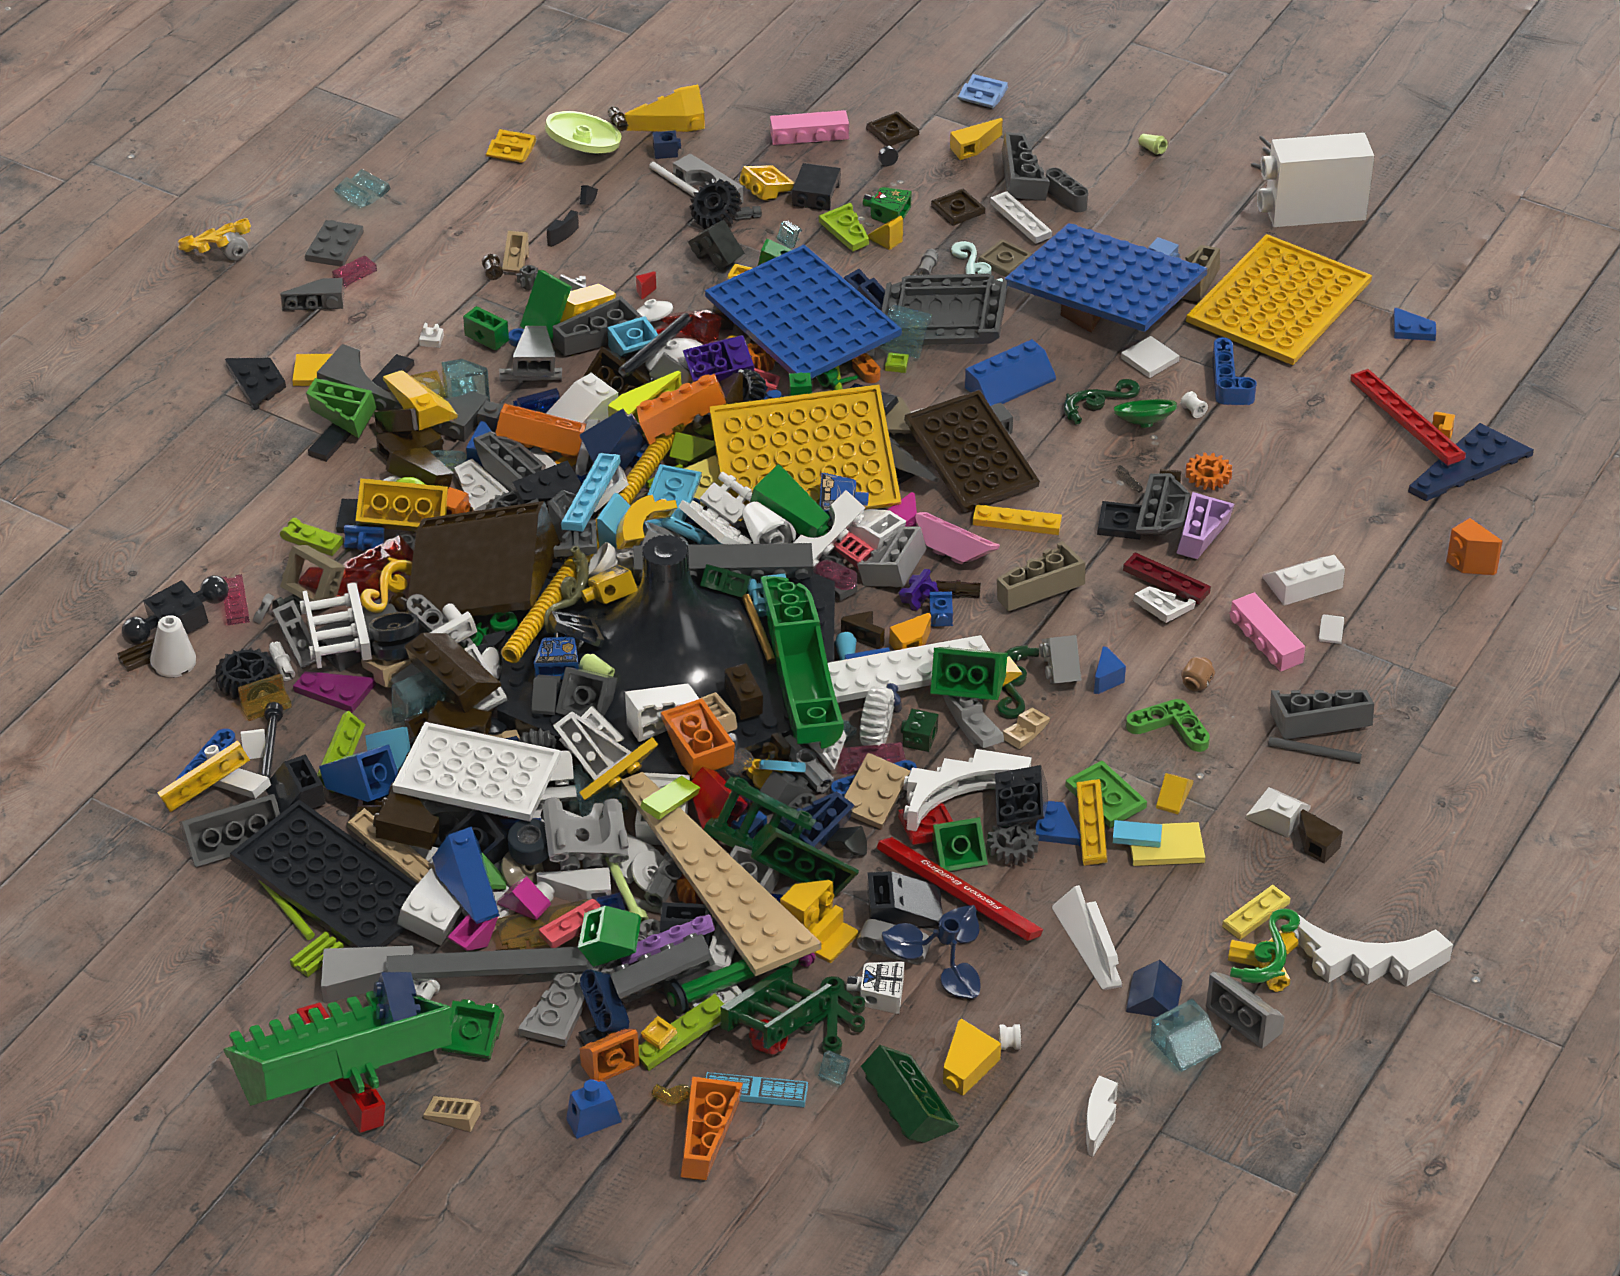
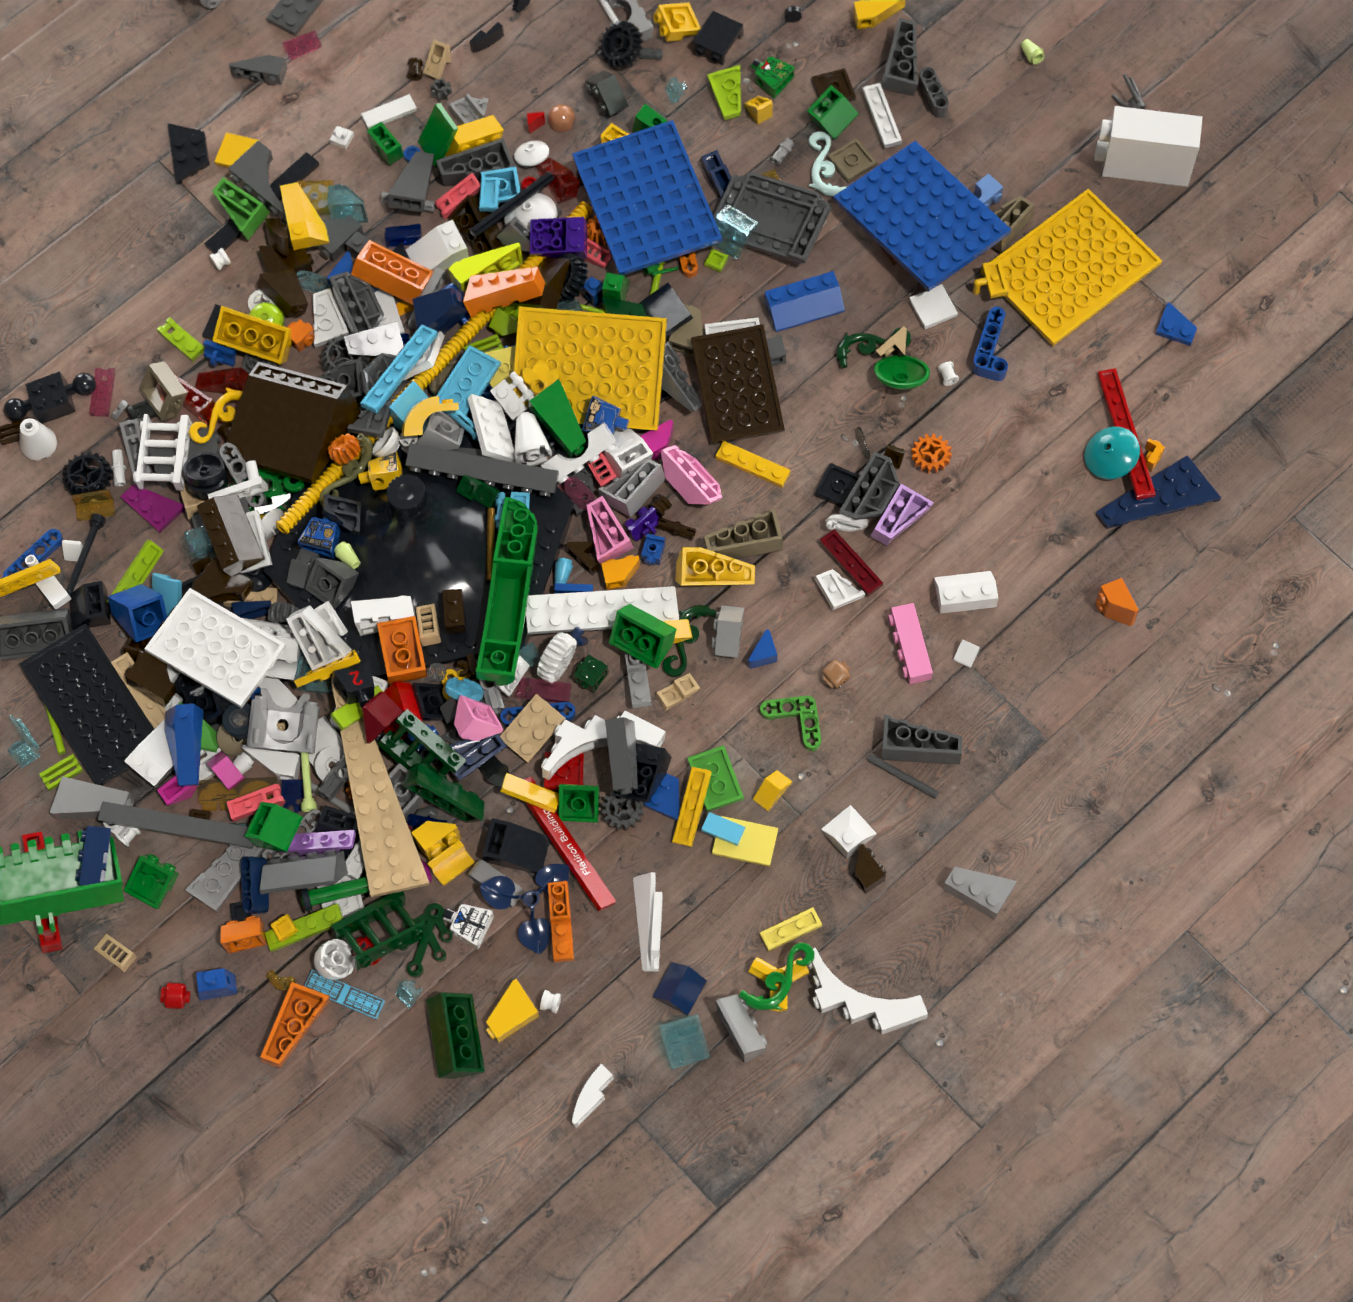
camera: 20 degrees right, 25 degrees up
(265, 927) = (26, 750): none -> clear light blue bracket
(332, 458) = (220, 259): none -> white wheel
(488, 301) = (389, 111): none -> white tile
(546, 1133) = (175, 995): none -> red head
(559, 566) = (344, 449): none -> orange gear
(586, 354) = (457, 194): none -> coral plate
(625, 341) = (489, 194): none -> medium azure tile
(657, 771) = (355, 683): none -> black torso
(673, 278) = (561, 118): none -> nougat hair
(700, 797) = (379, 715): none -> dark red slope
(731, 1052) = (334, 960): none -> white cylinder
(752, 470) = (540, 374): none -> yellow plate
(810, 783) = (475, 720): none -> bright pink slope
(885, 598) = (607, 532): none -> bright pink wedge
(900, 845) = (530, 793): none -> yellow tile
(935, 566) = (661, 504): none -> dark brown wheel
(968, 219) = (832, 112): none -> green slope
(986, 958) = (560, 921): none -> orange slope
(996, 773) = (622, 754): none -> dark grey slope
(1009, 608) = (707, 567): none -> yellow wedge
(1127, 385) = (897, 339): none -> tan slope
(1145, 544) = (845, 523): none -> white arm
(1204, 315) = (993, 279): none -> yellow plate
(1401, 433) = (1118, 459): none -> teal dish
(1451, 826) = (980, 890): none -> light grey wedge

